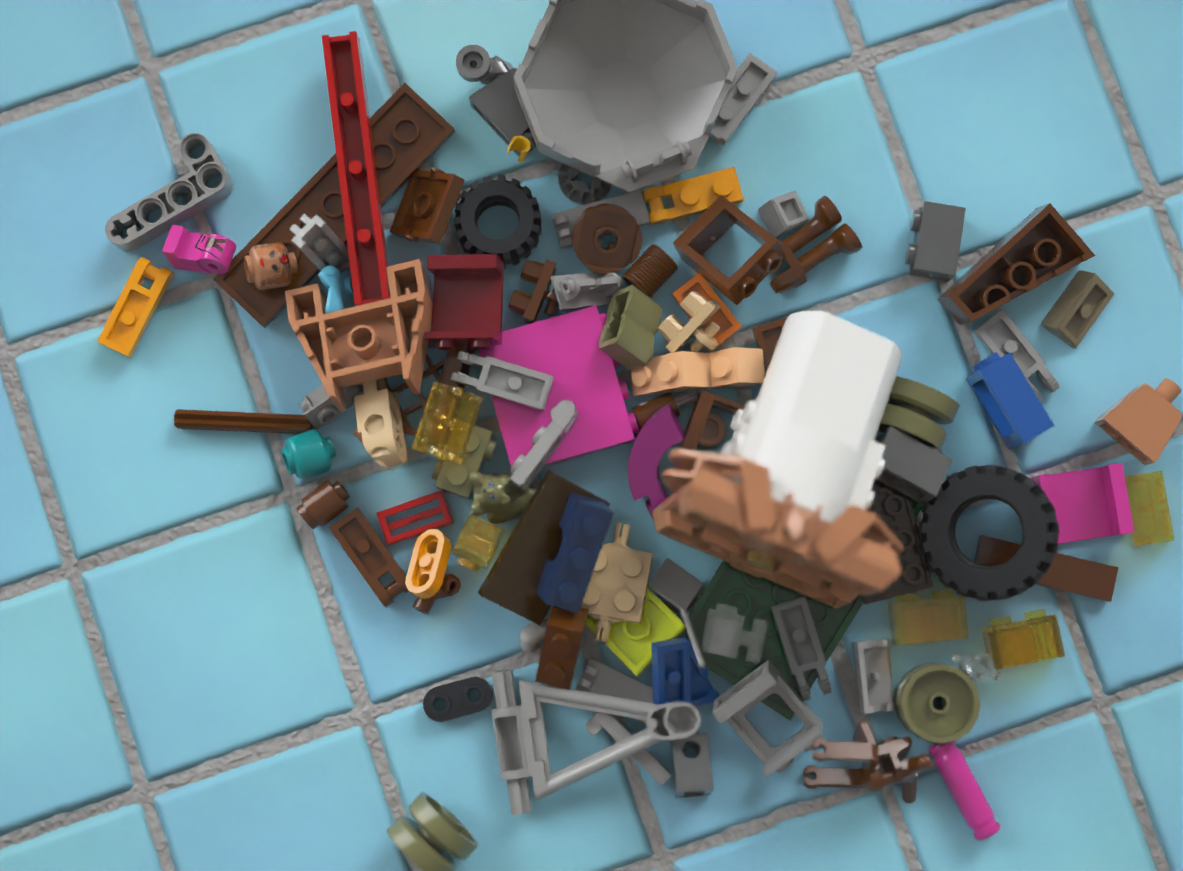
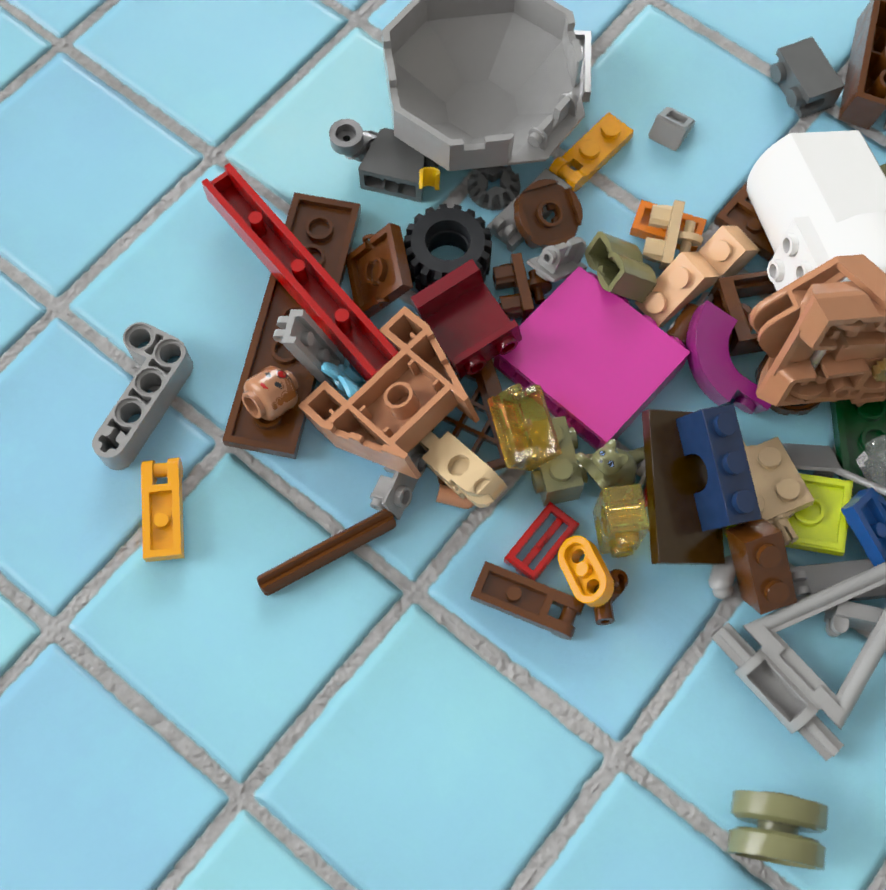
camera: 30 degrees left, 15 degrees down
(198, 251) = (196, 422): dark pink leg -> none
(308, 454) = (407, 541): teal head -> none
(323, 504) = (451, 578): reddish brown brick -> none
(457, 699) = (696, 682): black plate -> none
(506, 381) = (549, 363): light grey hinge -> none
(545, 443) = (621, 394): light grey hinge -> none
(650, 270) = (600, 214): reddish brown piece -> none
(709, 229) = (629, 143): reddish brown window -> none
(841, 240) = (707, 103): reddish brown piece -> none

